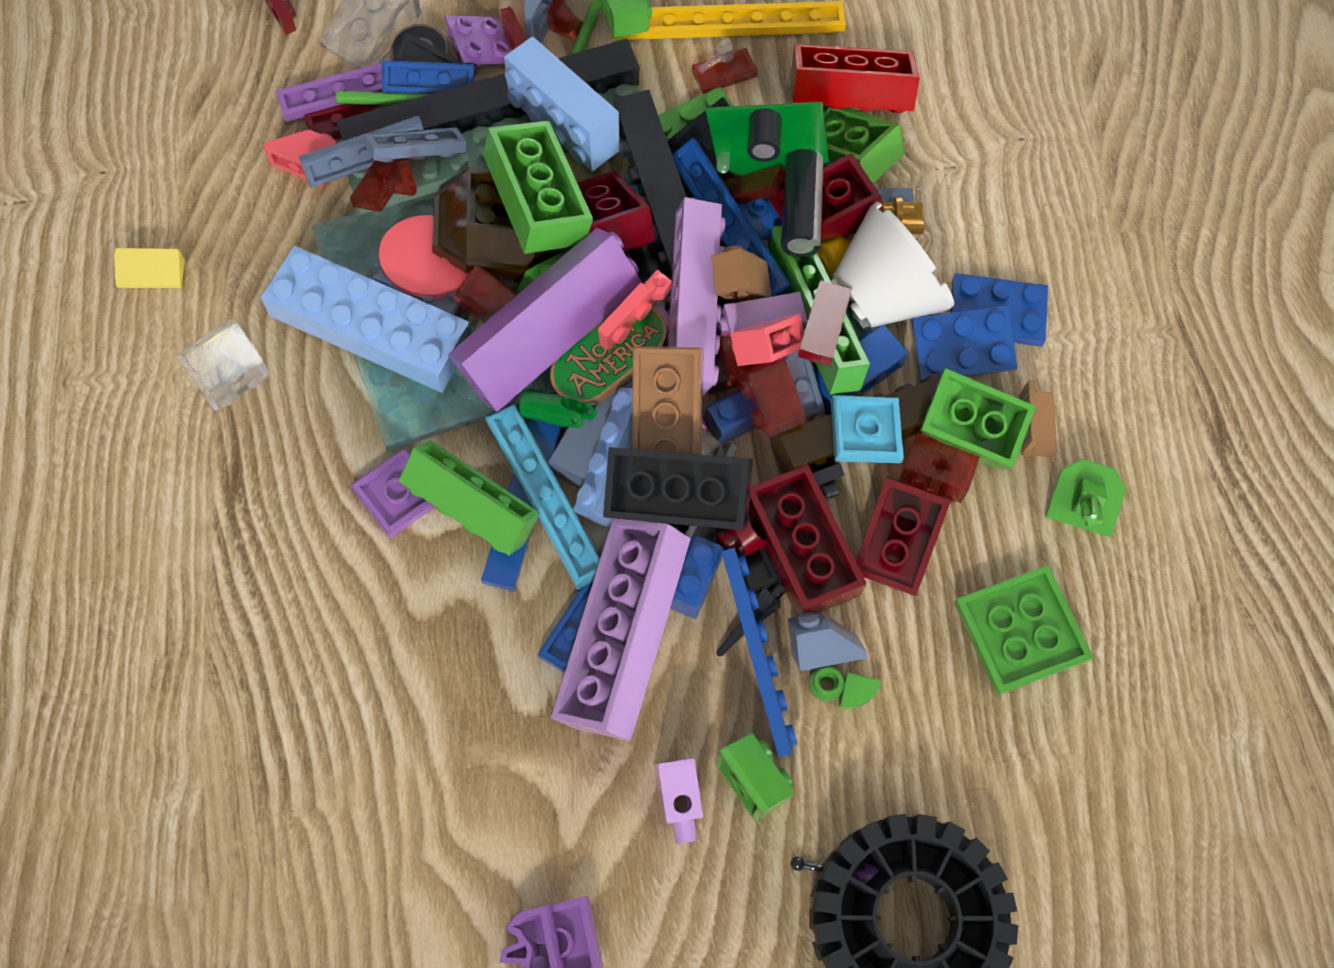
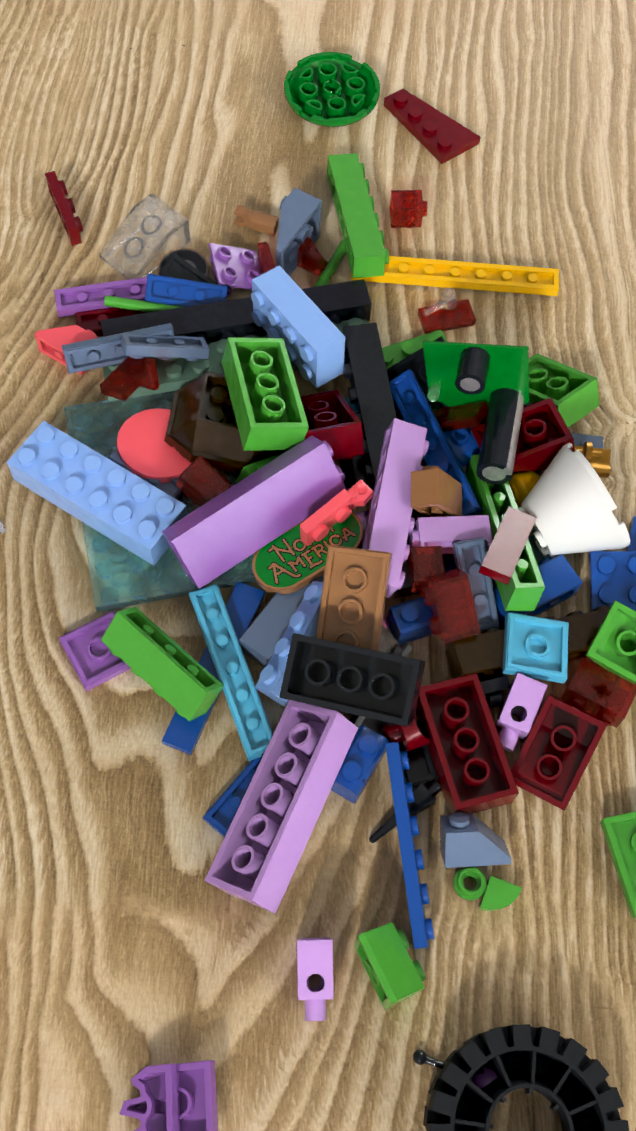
camera: 10 degrees right, 5 degrees down
(554, 409) = (251, 592): green piece -> none
(767, 340) = (453, 554): coral slope -> none
(854, 77) = (563, 334): red brick -> none
(861, 488) = (521, 700): none -> lavender torso

